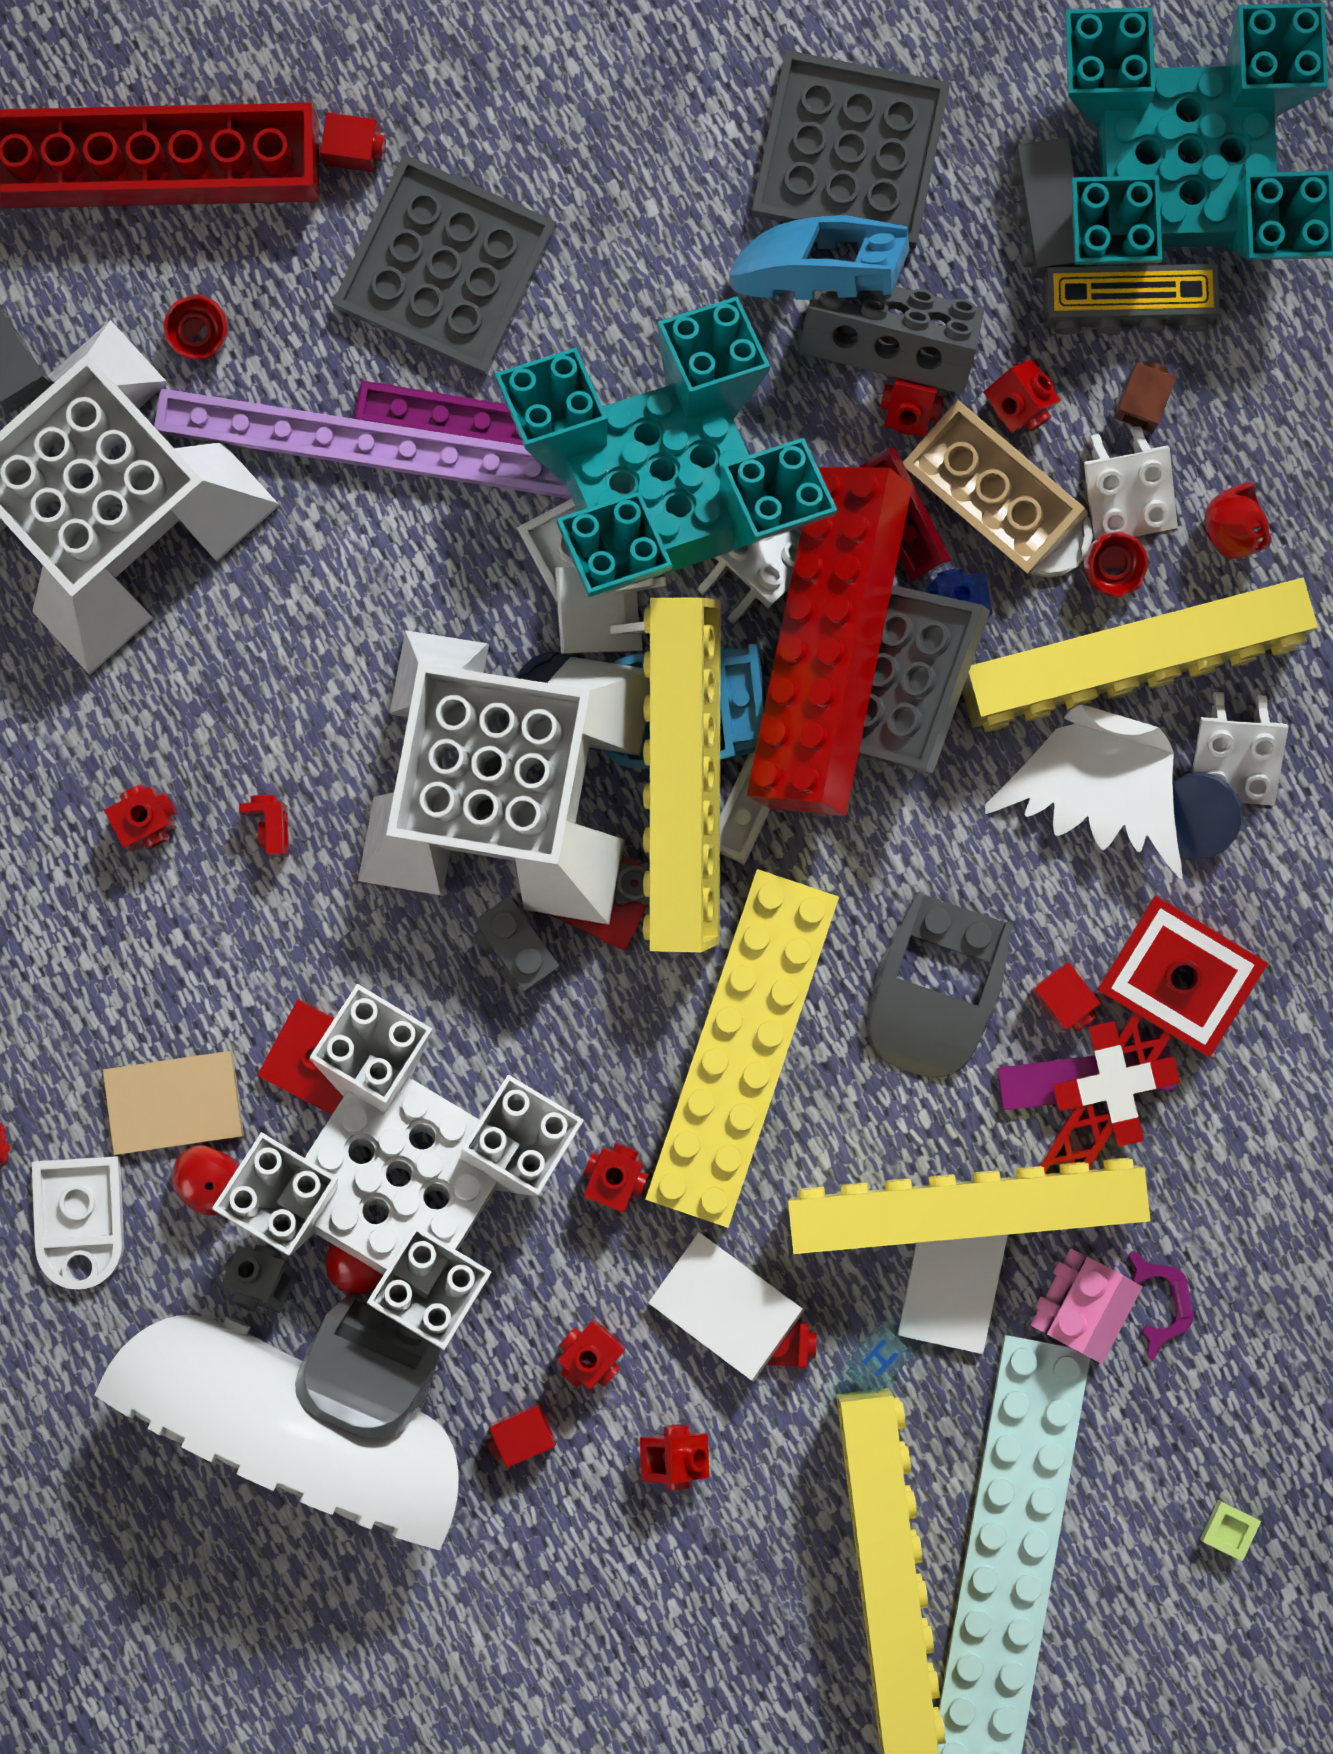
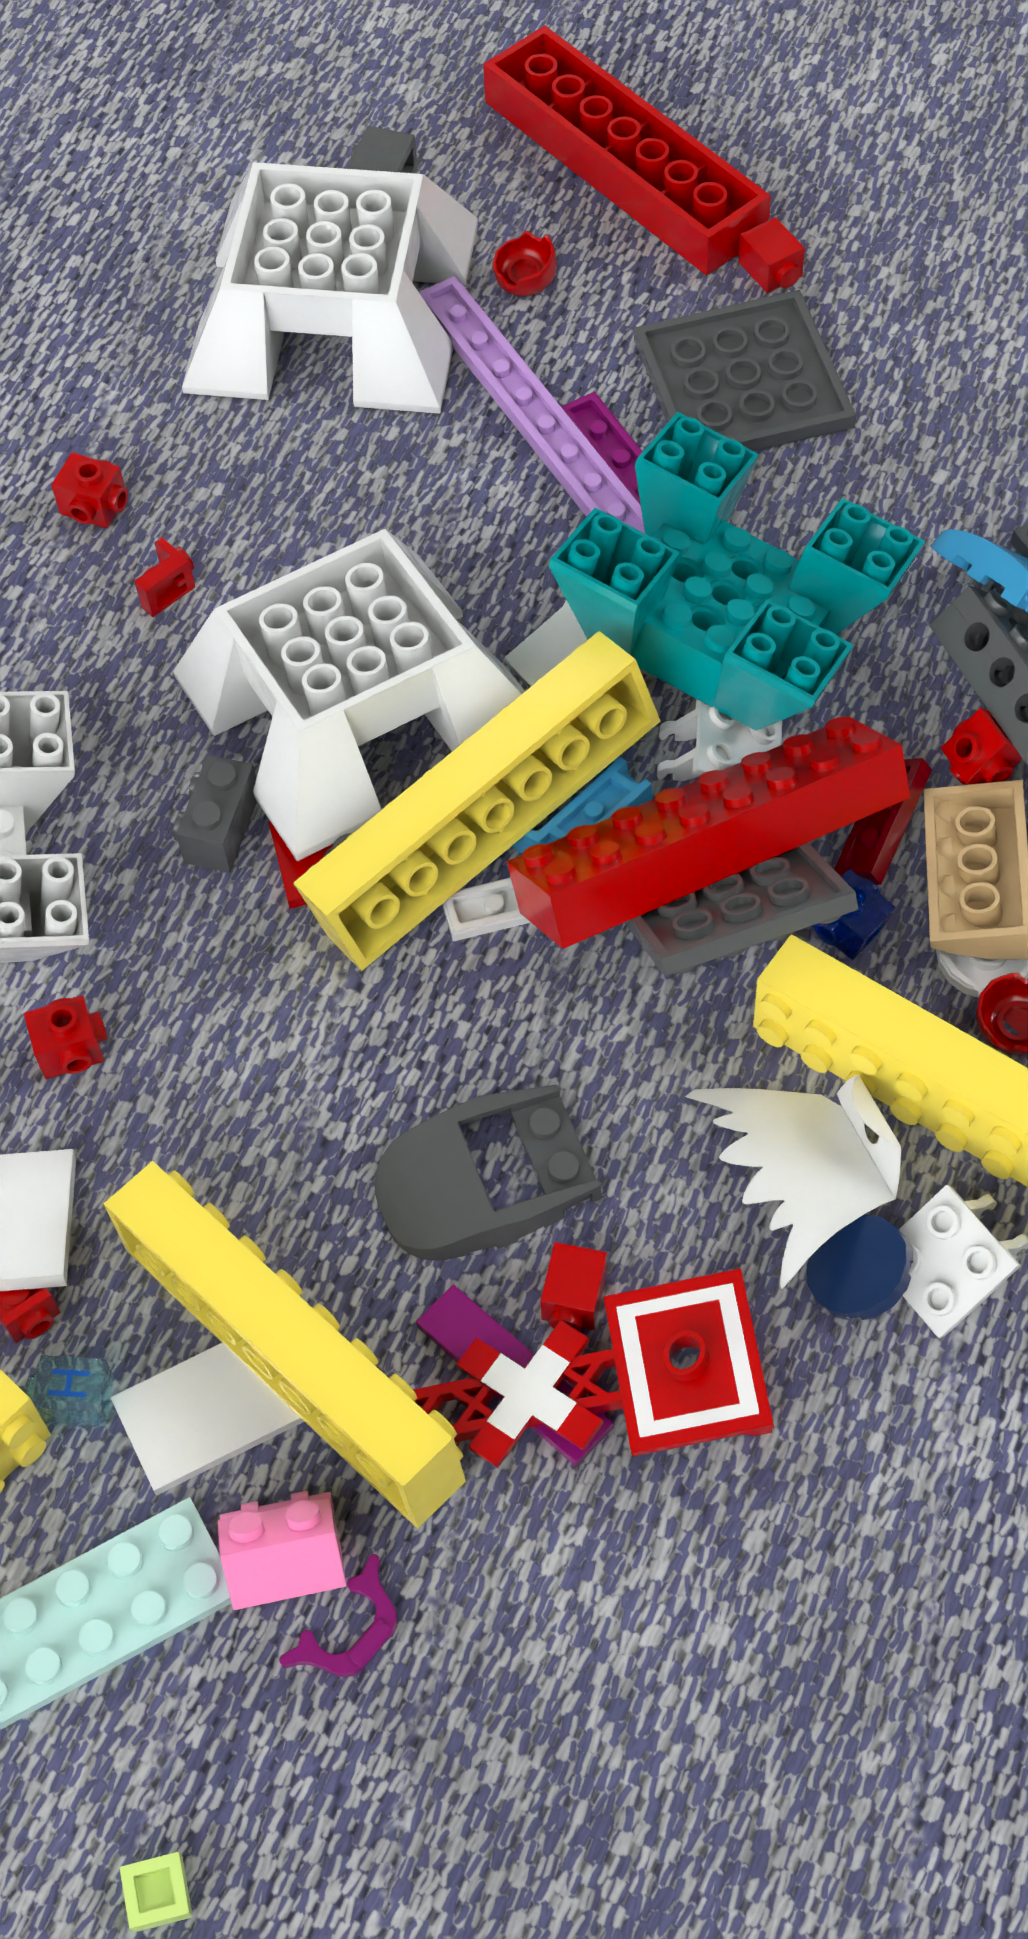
camera: 50 degrees right, 25 degrees down
(742, 1048) = (276, 1050): light yellow brick -> none

